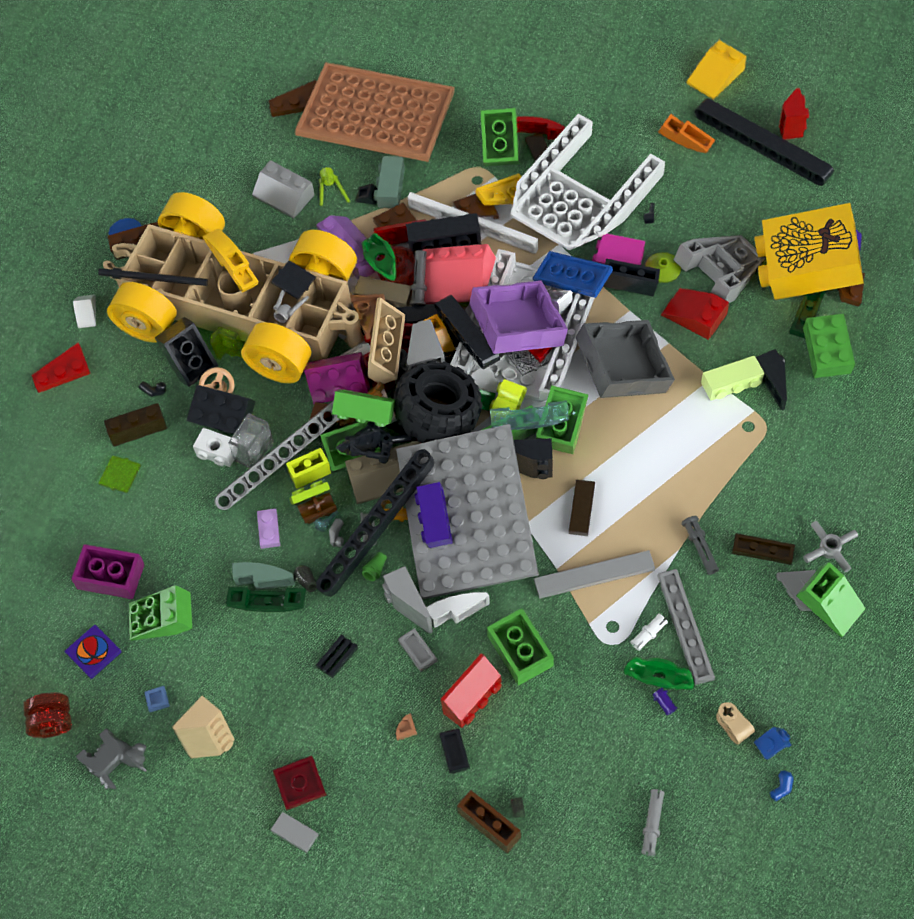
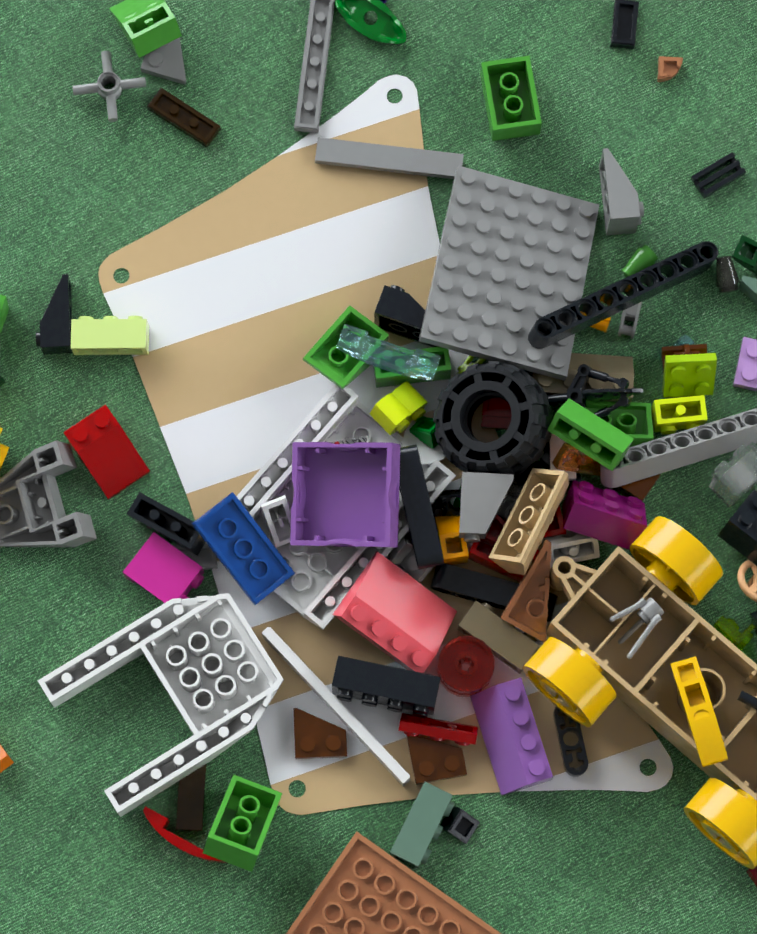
camera: 165 degrees left, 15 degrees up
(282, 189) = (577, 876): light grey slope -> none
(293, 279) = (622, 649): black piece -> none
(328, 178) = (506, 873): lime plant -> none
(334, 530) = (673, 325): light grey arm -> none
(377, 246) = (490, 696): green piece -> none
(417, 650) = (624, 148): light grey tile -> none
(418, 287) = (449, 617): dark grey pin -> none
(433, 515) = (554, 268): dark purple brick -> none
(457, 607) = (563, 175): white slope -> none
(471, 691) = (584, 69): slope -> none
(498, 192) = (272, 740): yellow wing -> none
(581, 507) = (367, 244): dark brown tile -> none
(624, 358) = (233, 400): dark grey tile -> none
(648, 632) = (359, 68): white pin -> none
(649, 217) = (93, 622): black hand -> none
(667, 272) = (114, 553): lime dish -> none
(695, 537) = (253, 154): dark grey pin -> none

